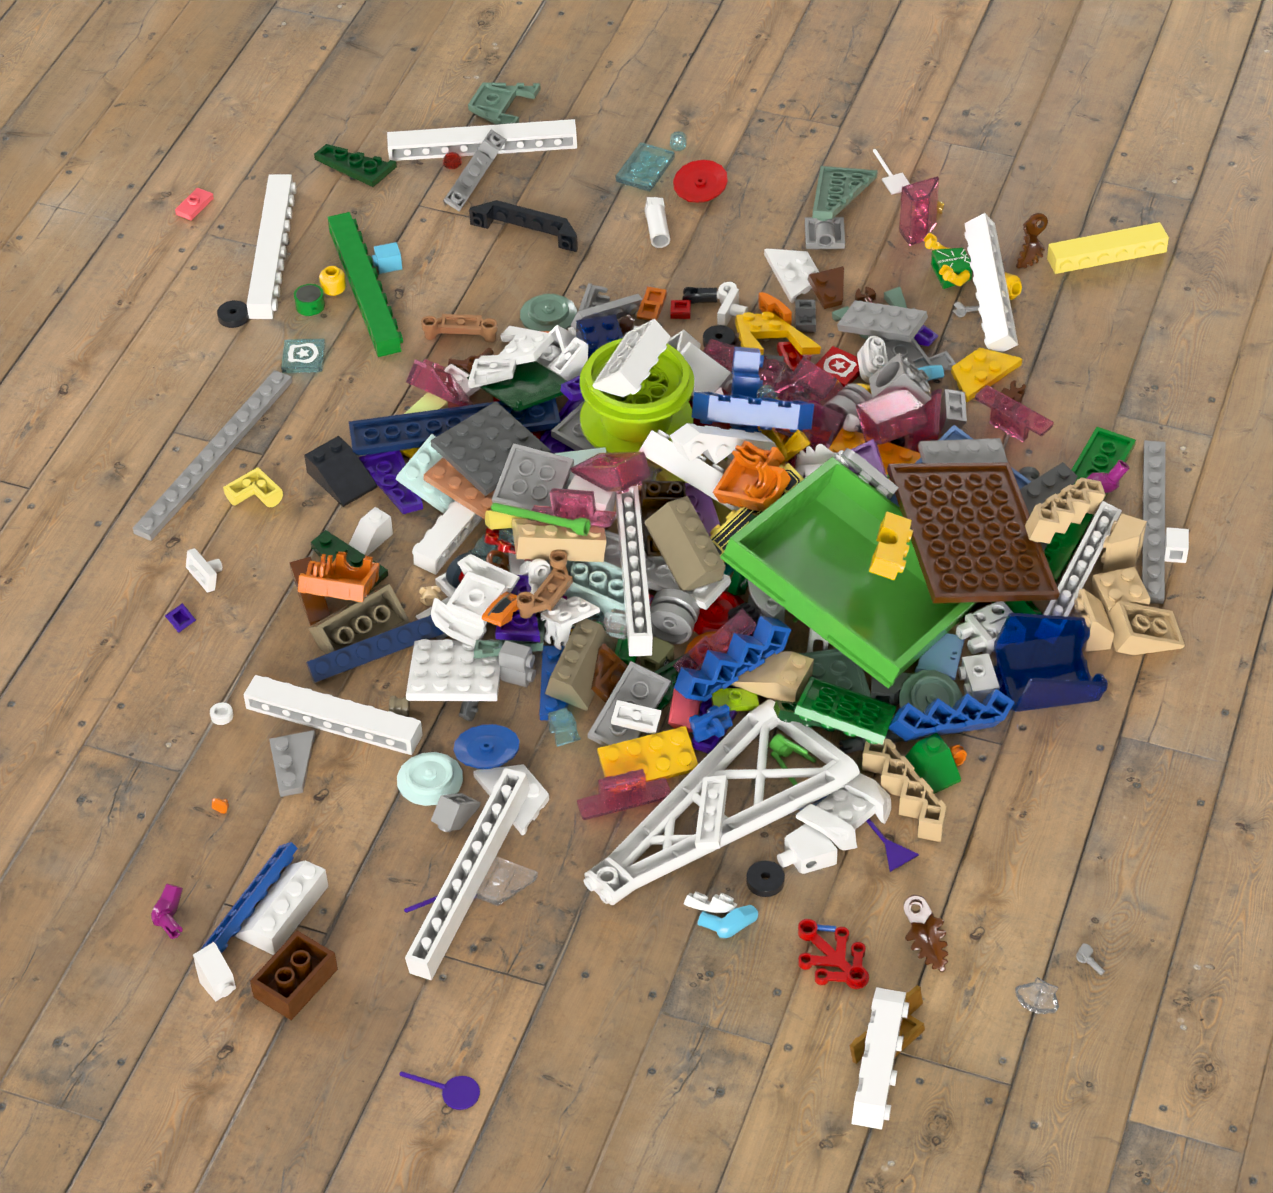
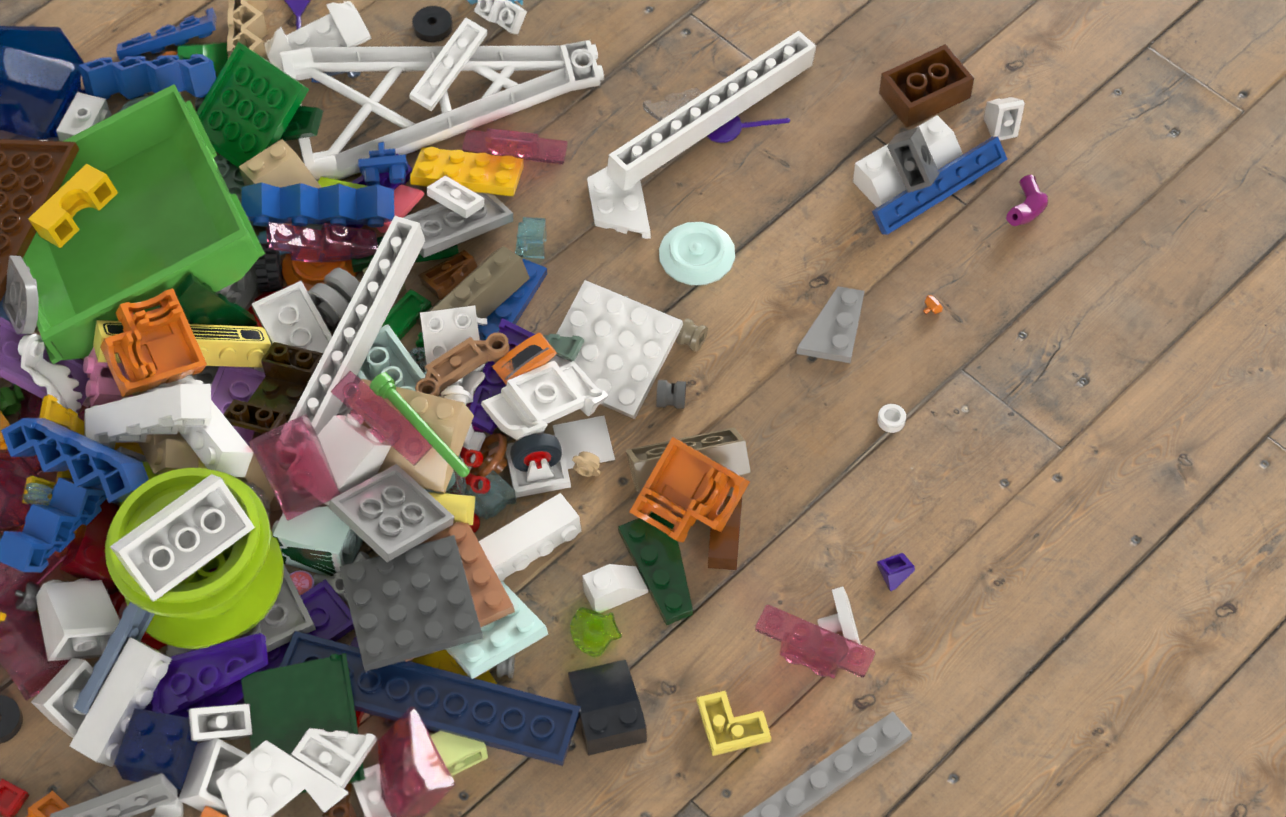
camera: 155 degrees left, 10 degrees up
(215, 540) = (813, 645): none -> clear pink bracket
(273, 874) = (913, 159): none -> dark grey brick
(333, 714) = (770, 356): white brick -> none
(368, 502) = (593, 631): none -> clear neon green animal
(372, 648) = (663, 421): dark blue plate -> none
(384, 470) = (544, 662): dark purple wing -> none
(393, 661) = (671, 394): none -> dark grey wheel
(454, 811) = (690, 193): light grey slope -> none
(486, 746) = (623, 246): blue piece -> none
(516, 664) = (540, 313): light grey brick -> none
(615, 624) = (404, 320): clear head -> none
(626, 323) = (95, 789): reddish brown plate -> none
(685, 545) = (279, 331): dark tan slope -> none
(783, 747) = (327, 132): bright green plant -> none
(808, 850) = (381, 23): white torso -> none
(972, 773) = (169, 35): none -> blue wing

